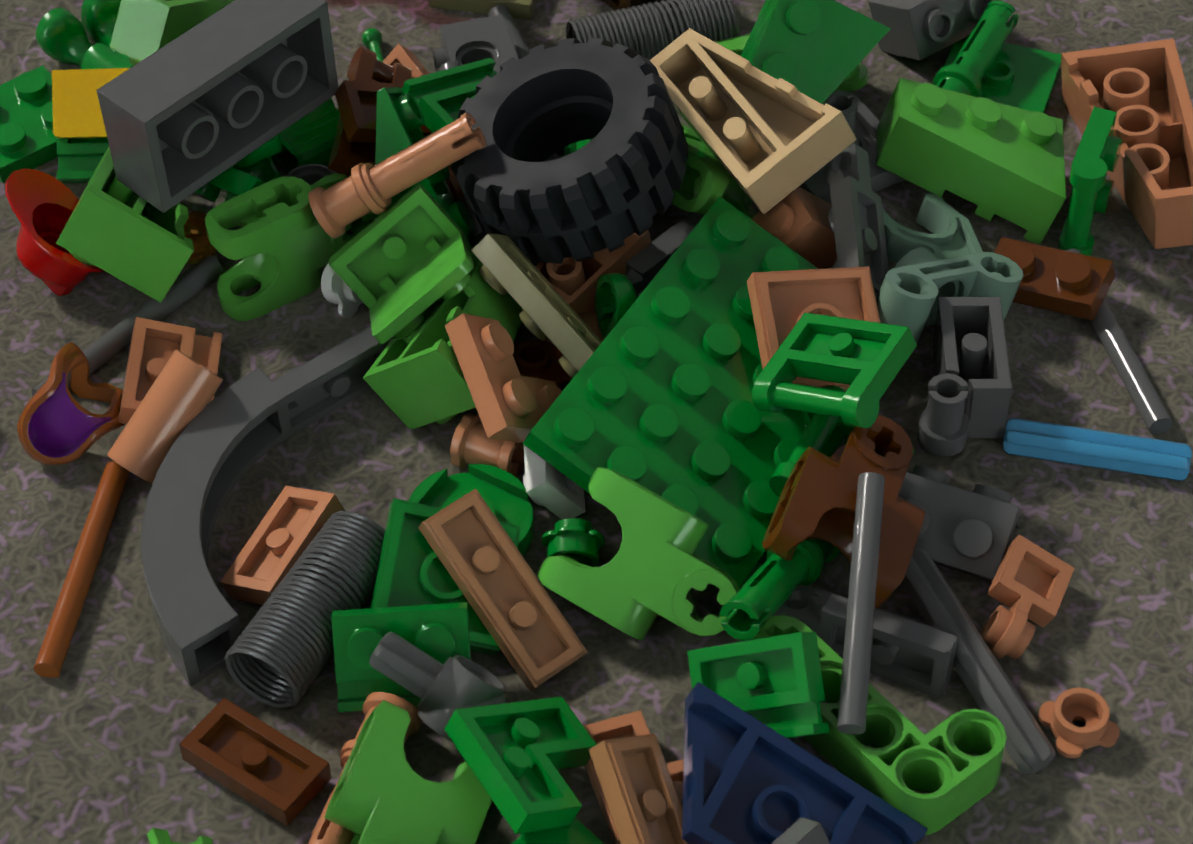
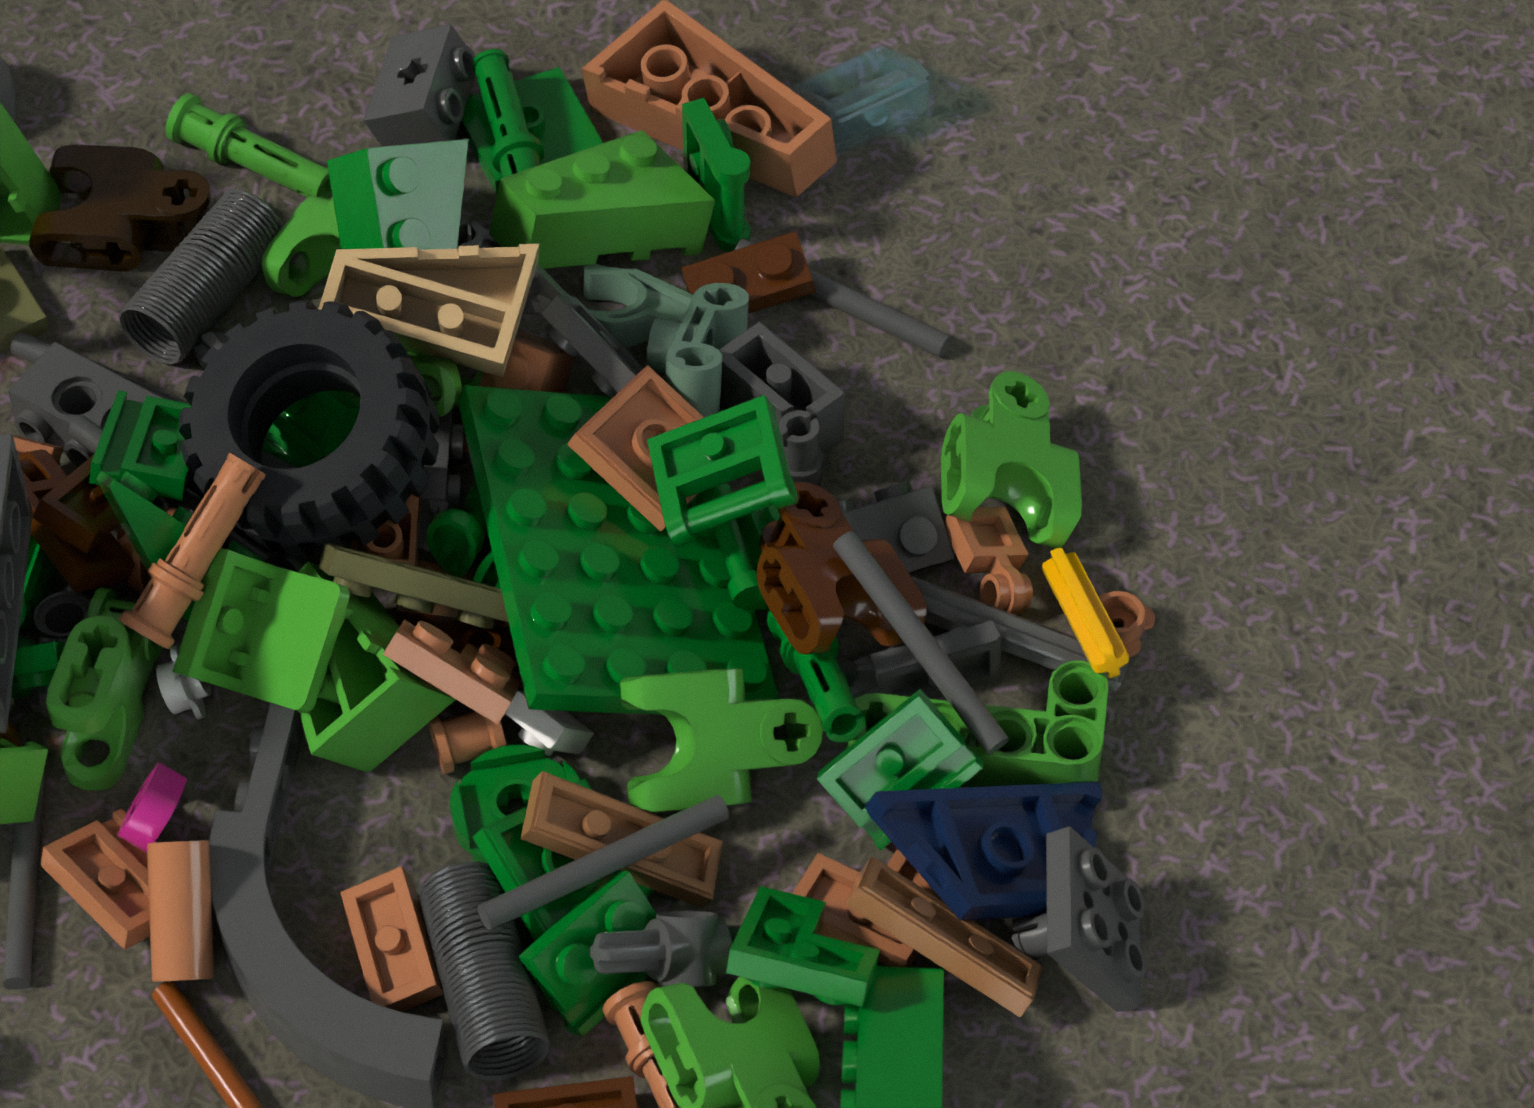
camera: 45 degrees left, 5 degrees up
(53, 424) = (78, 990): piece -> none
(228, 339) = (152, 806): none -> dark pink beam
(459, 588) = (602, 862): none -> dark grey bar
(575, 539) = (620, 763): green plate -> none
(1046, 689) = (1085, 613): none -> yellow axle
(1097, 449) = (920, 399): dark azure axle -> none
(1109, 532) = (1009, 457): none -> bright green piece

